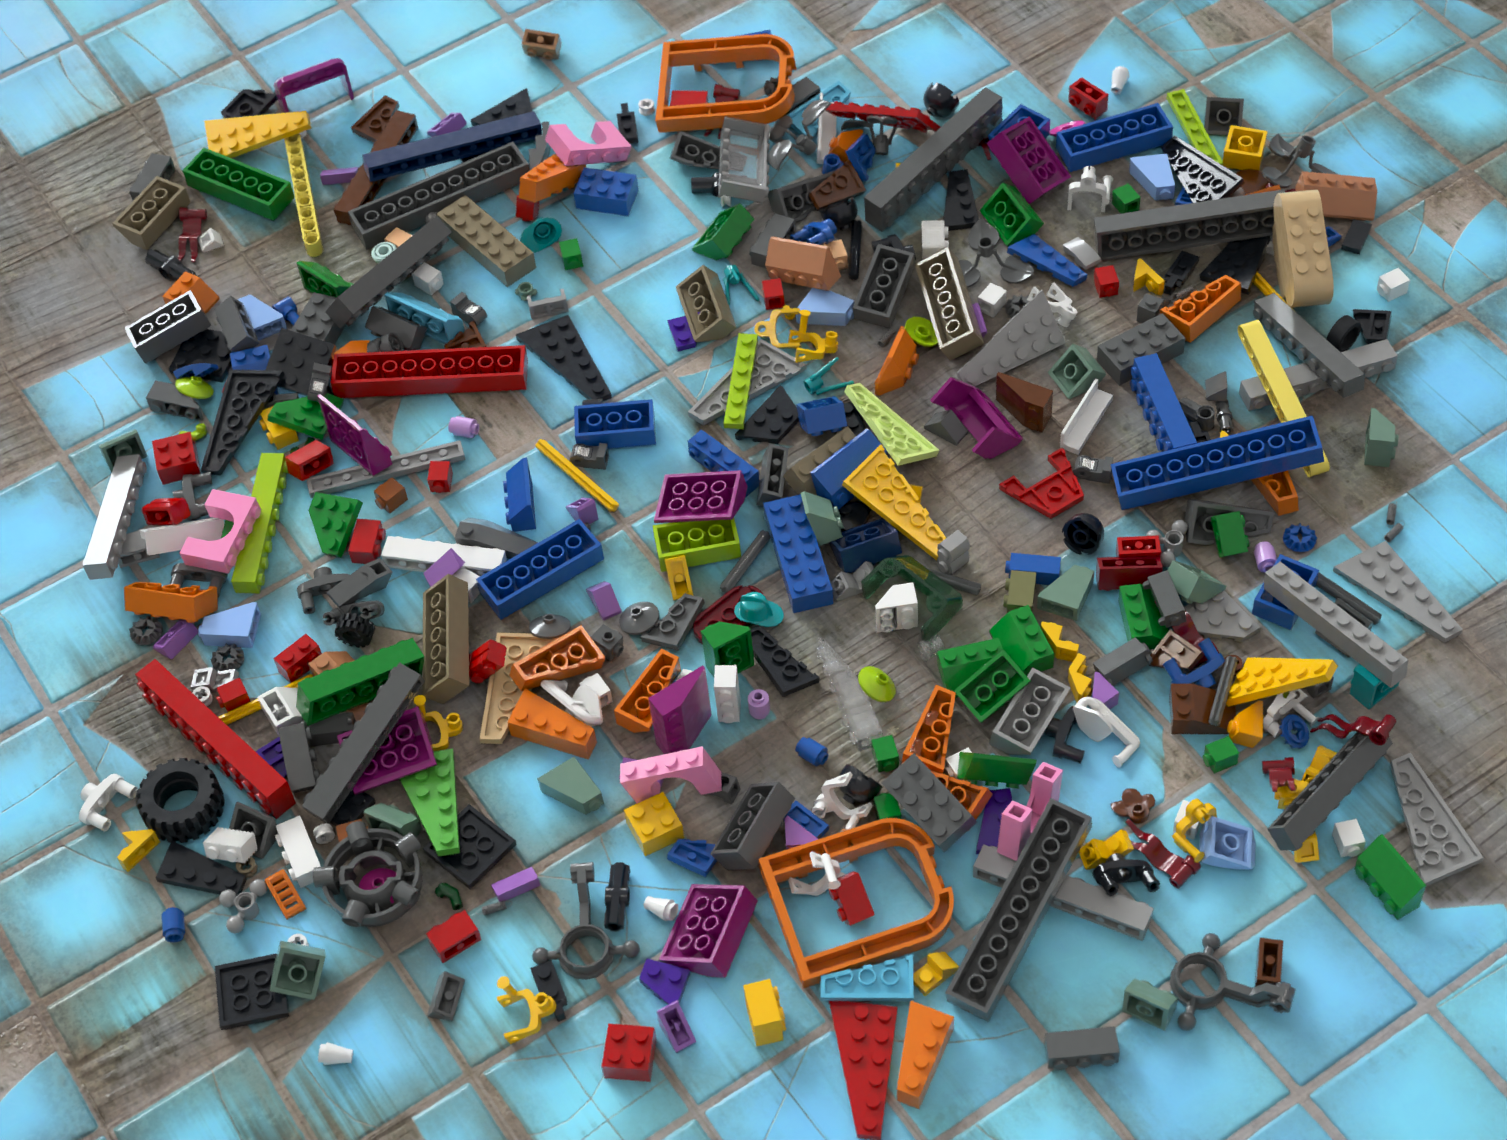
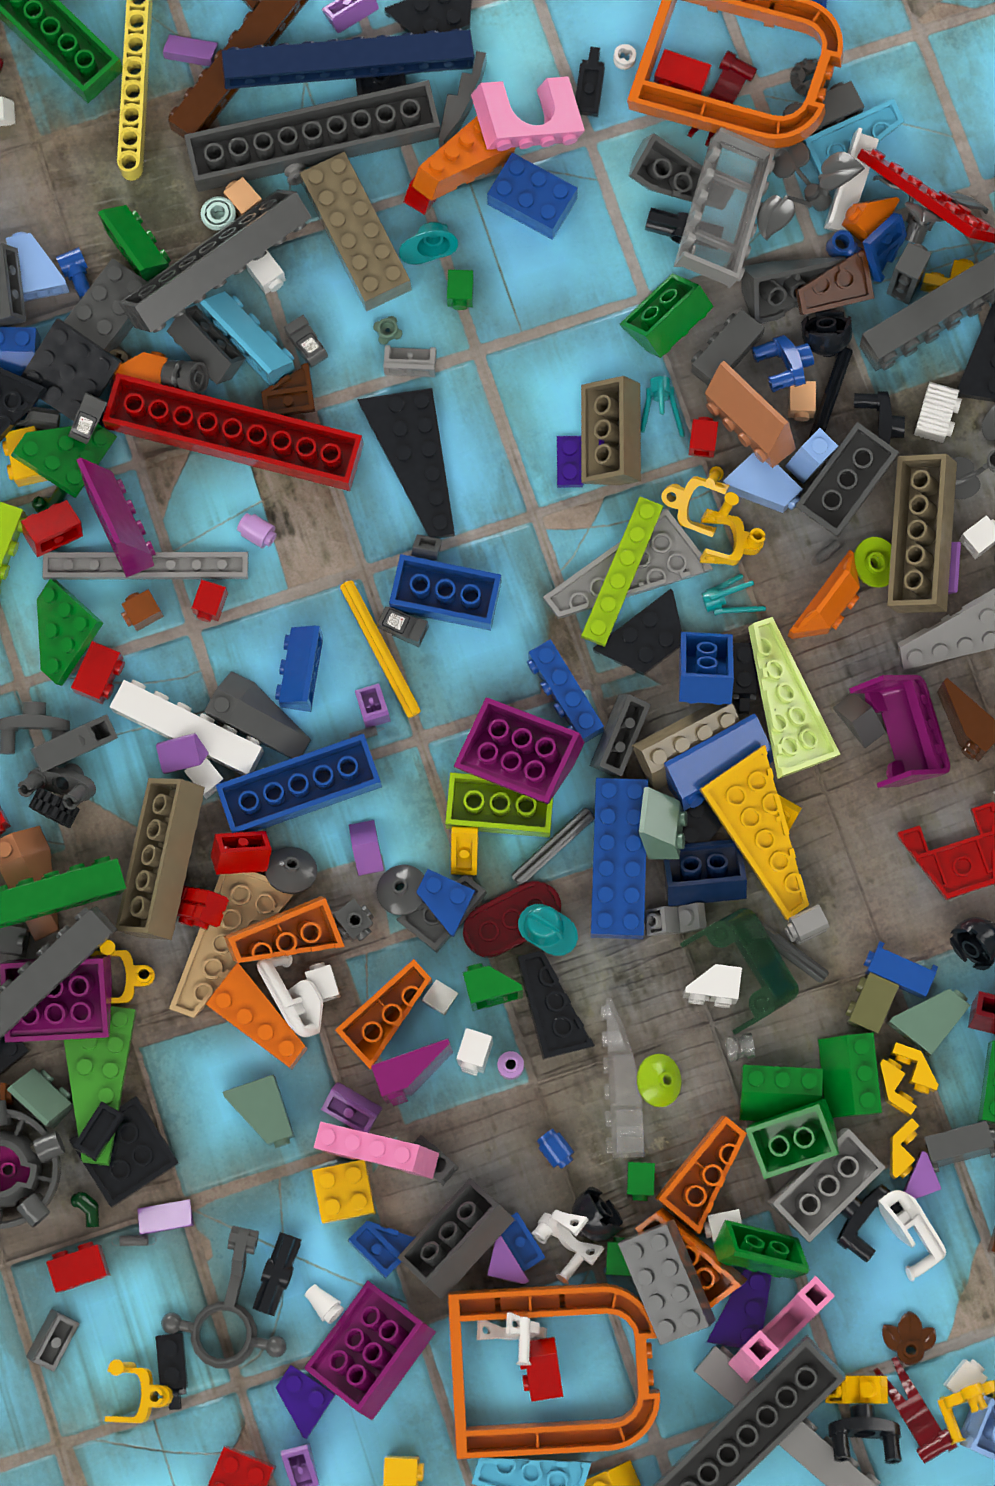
camera: 15 degrees right, 25 degrees up
(445, 825) = (98, 1131): none -> black tile
(507, 617) = (241, 852): none -> red brick
(674, 609) = (445, 899): none -> blue wing
(853, 273) = (811, 455): none -> light blue slope
(883, 157) = (908, 272): none -> dark grey brick
(1077, 629) = (921, 1076): none -> yellow slope

